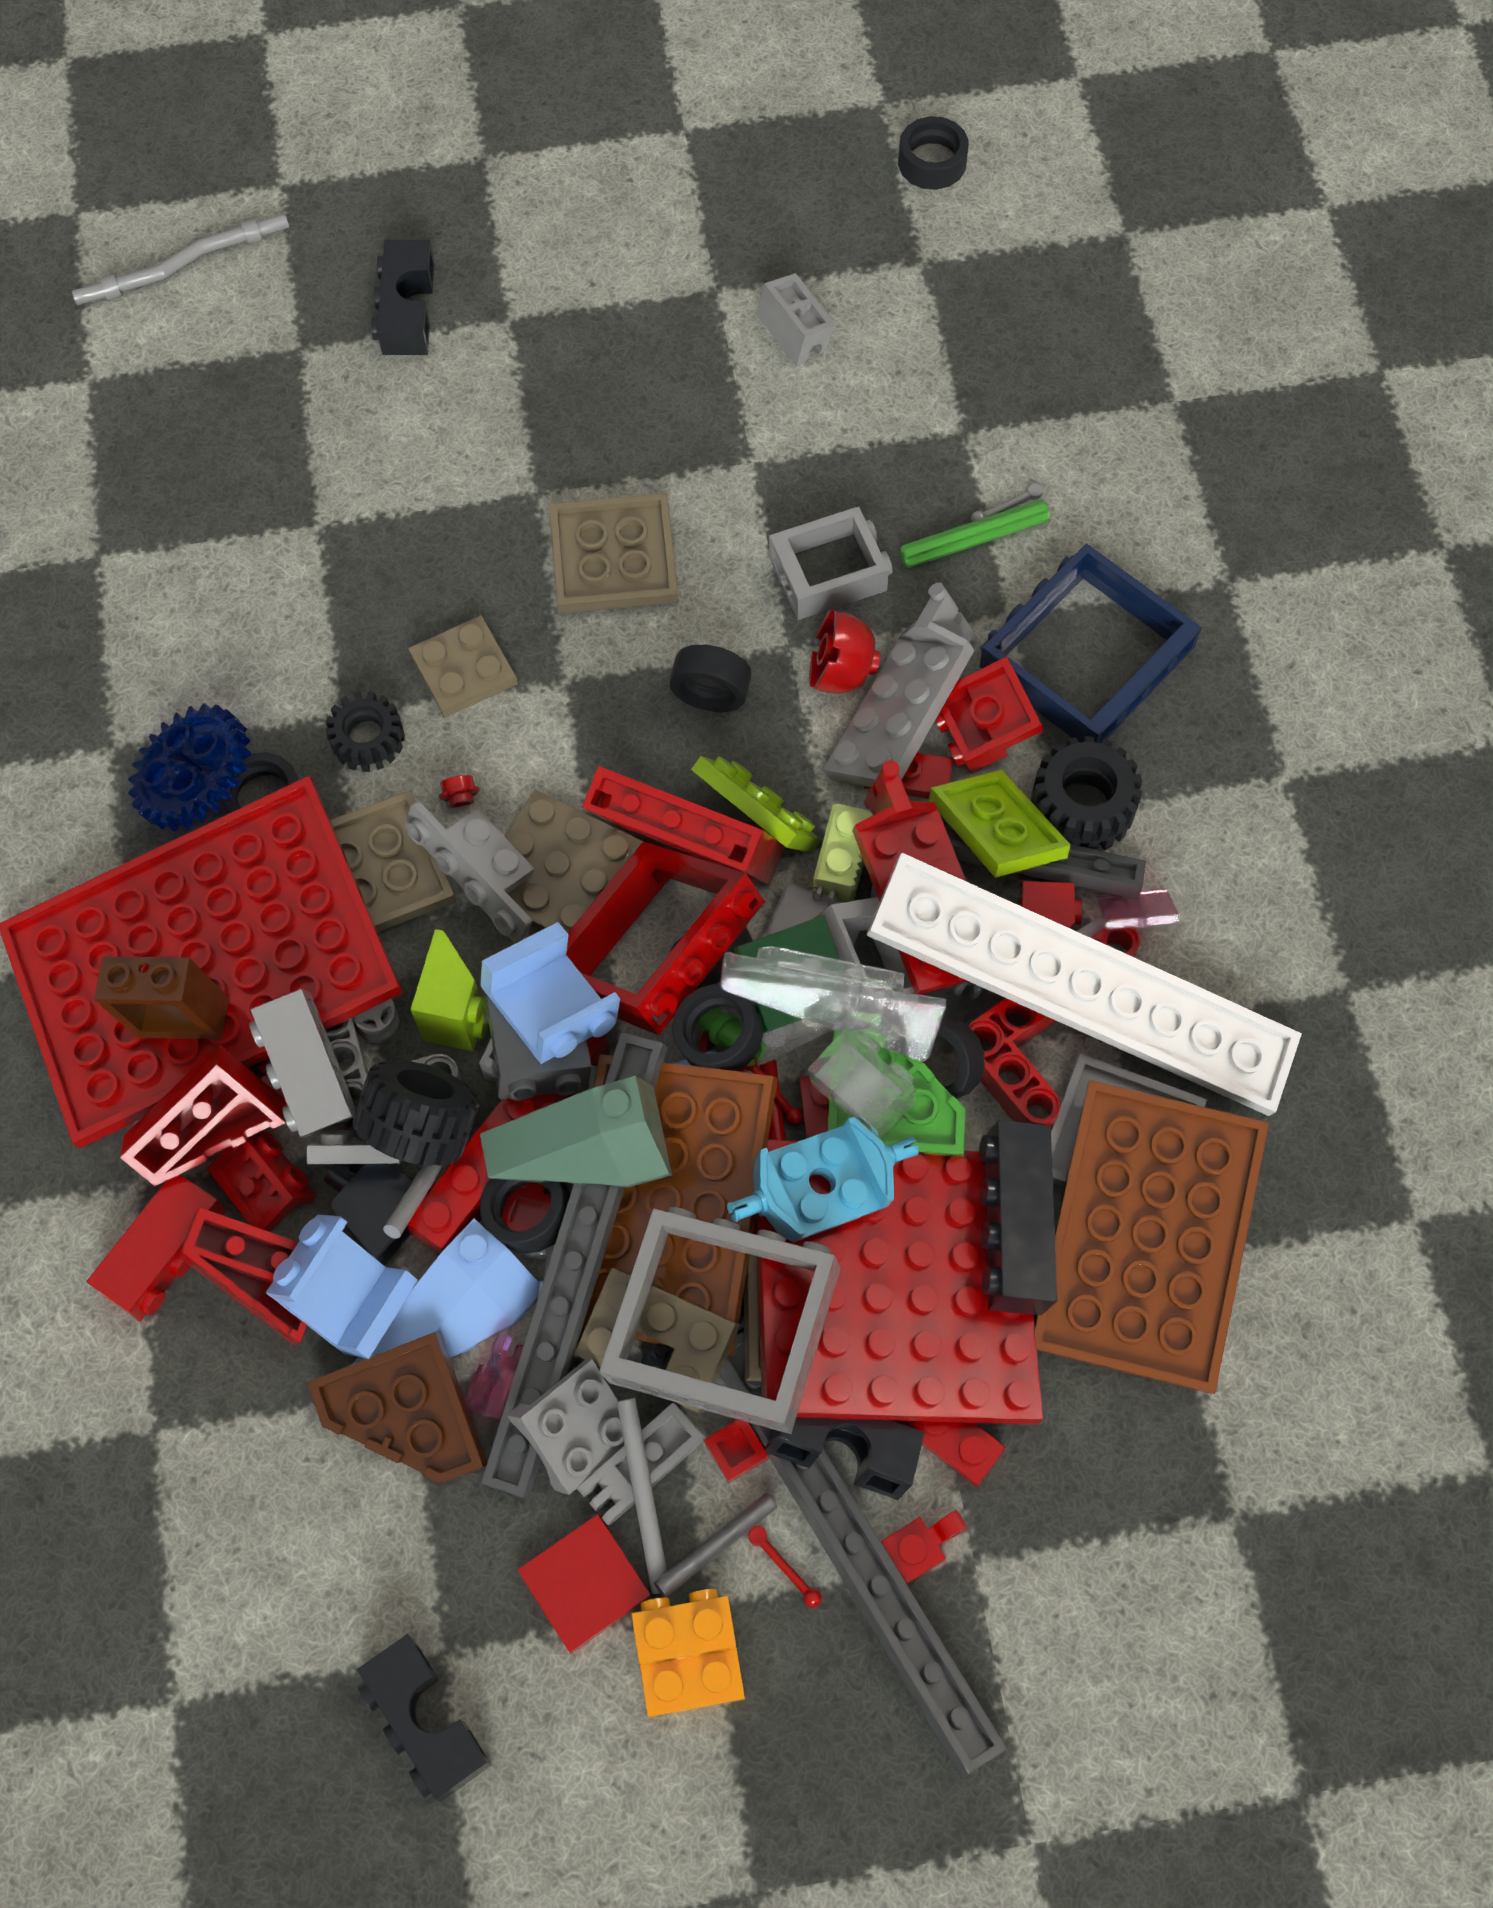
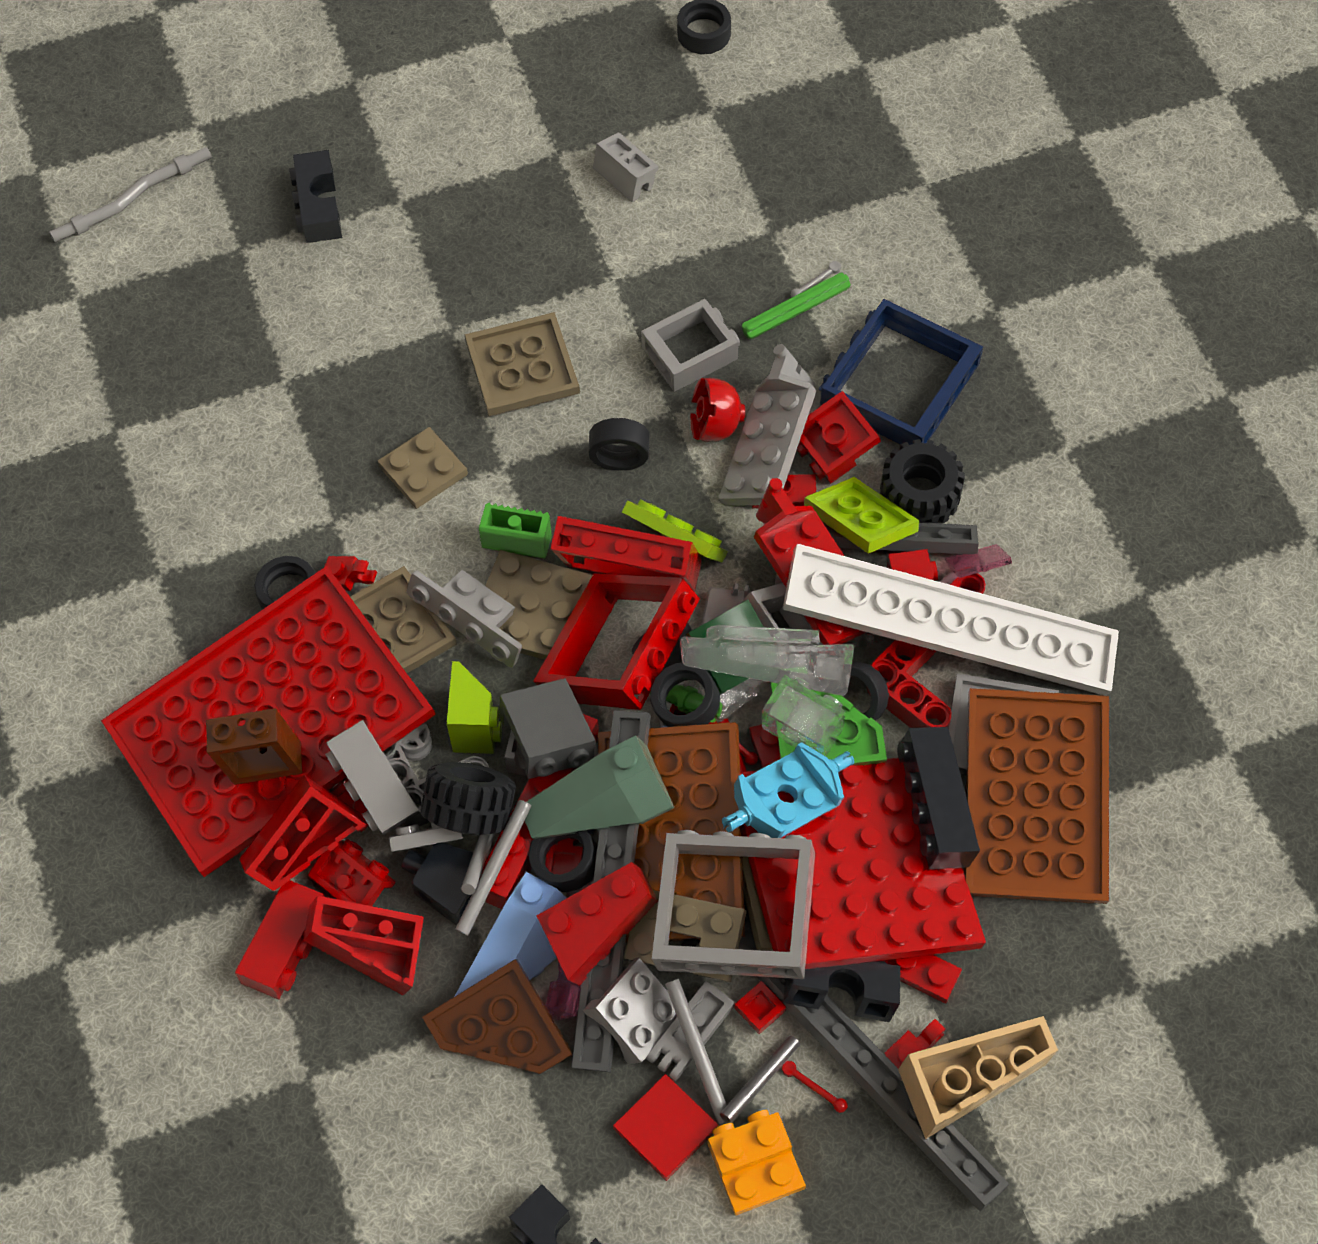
camera: 10 degrees left, 5 degrees down
(178, 792) = (228, 576): clear blue gear -> none
(340, 784) = (350, 571): none -> red plate
(340, 1287) = (429, 945): light blue panel -> none
(360, 711) = (358, 512): black tyre -> none
(430, 1208) = (493, 867): none -> light grey bar
(458, 790) = (440, 560): red plate -> none
(543, 1302) = (596, 918): none -> red wedge
(546, 995) = (549, 694): light blue panel -> none
(553, 766) = (515, 530): none -> bright green brick
(840, 857) = (746, 556): yellowish green brick -> none
(980, 1593) = (968, 1072): none -> tan wedge

